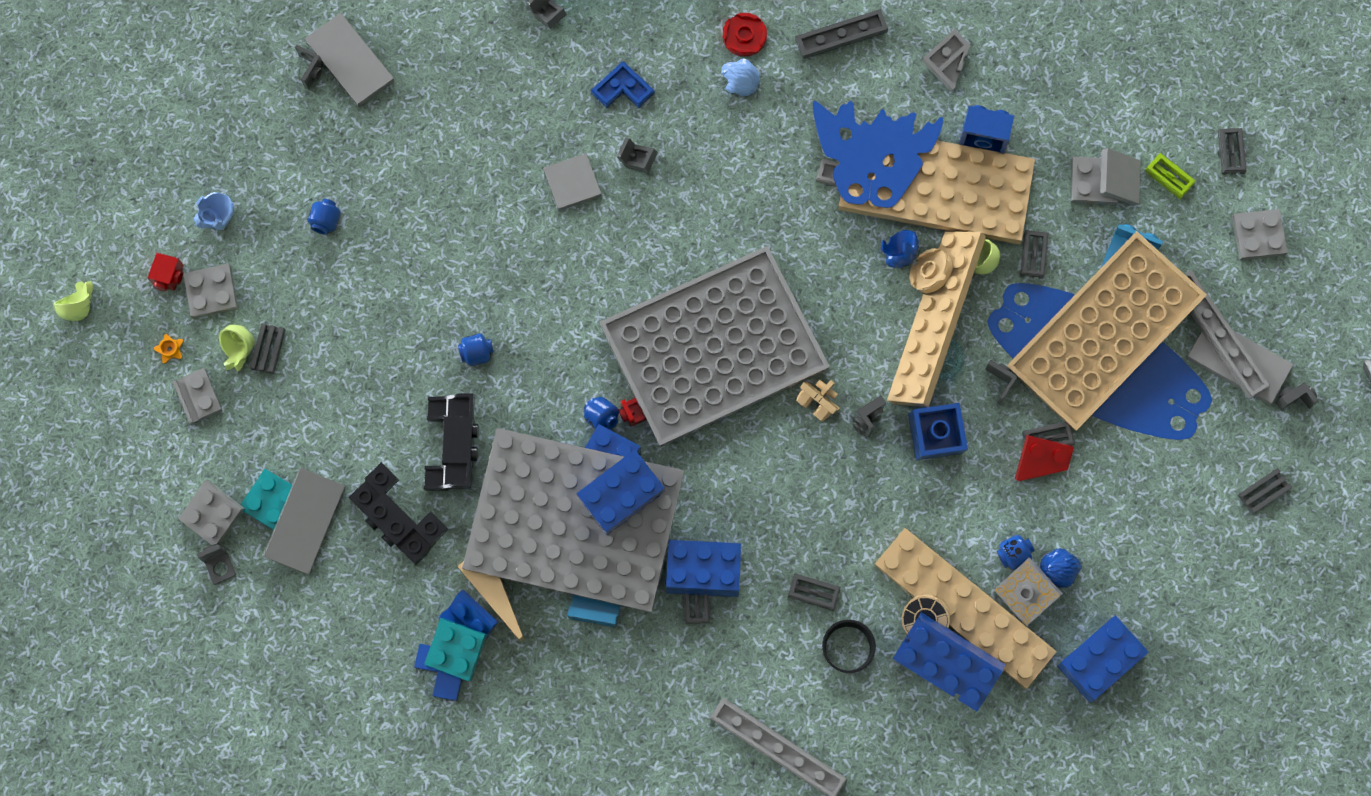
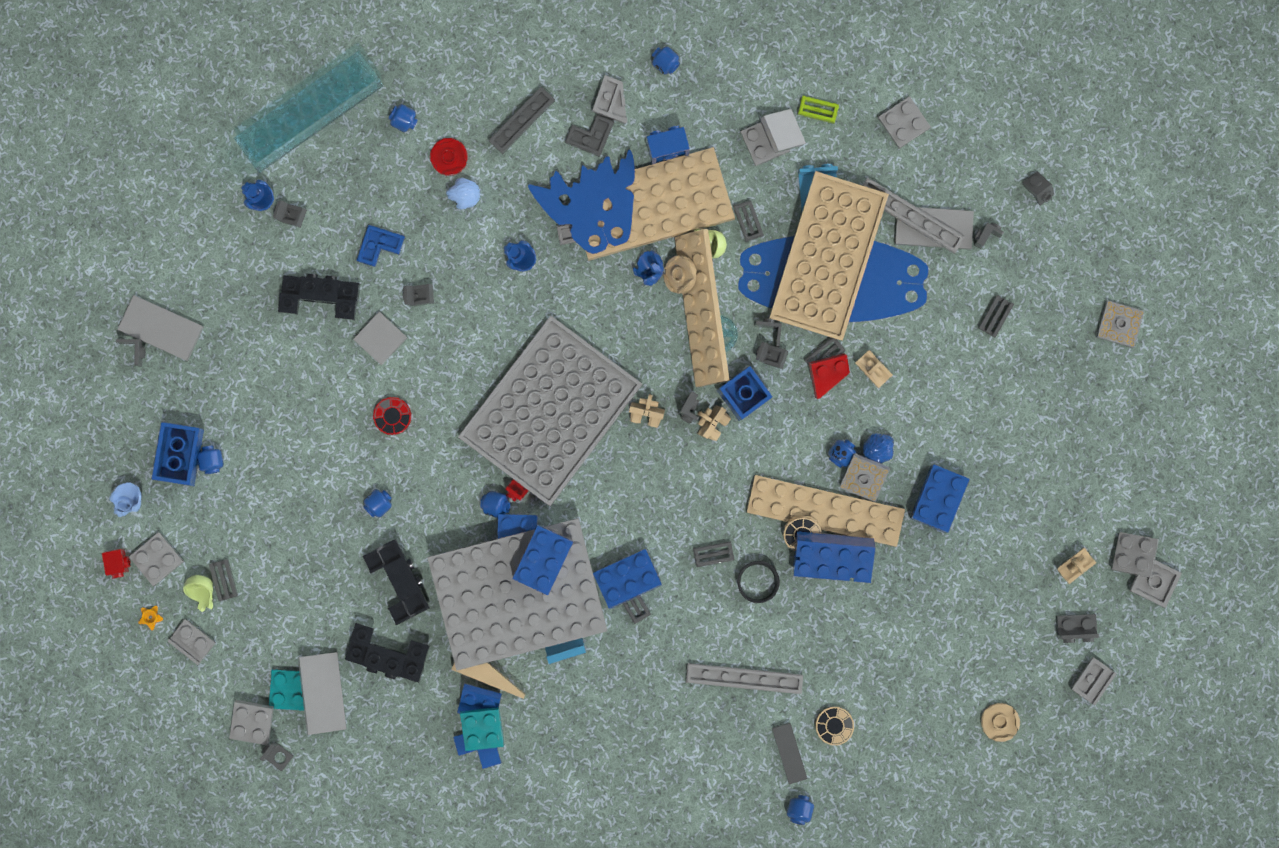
camera: 30 degrees left, 10 degrees up
(77, 305) = (62, 622): yellowish green piece -> none
(293, 191) = (177, 454): none -> blue brick
(535, 101) = (319, 290): none -> black bracket
(541, 267) = (392, 416): none -> tile
(766, 168) = (520, 256): none -> blue hair
(896, 442) = (710, 420): none -> tan hips
(905, 91) = (592, 141): none -> dark grey tile
(988, 407) = (771, 355): none -> dark grey bracket
(1027, 46) = (665, 60): none -> blue head
(1096, 478) = (873, 369): none -> tan hips
(1223, 153) = (846, 53): dark grey tile -> none

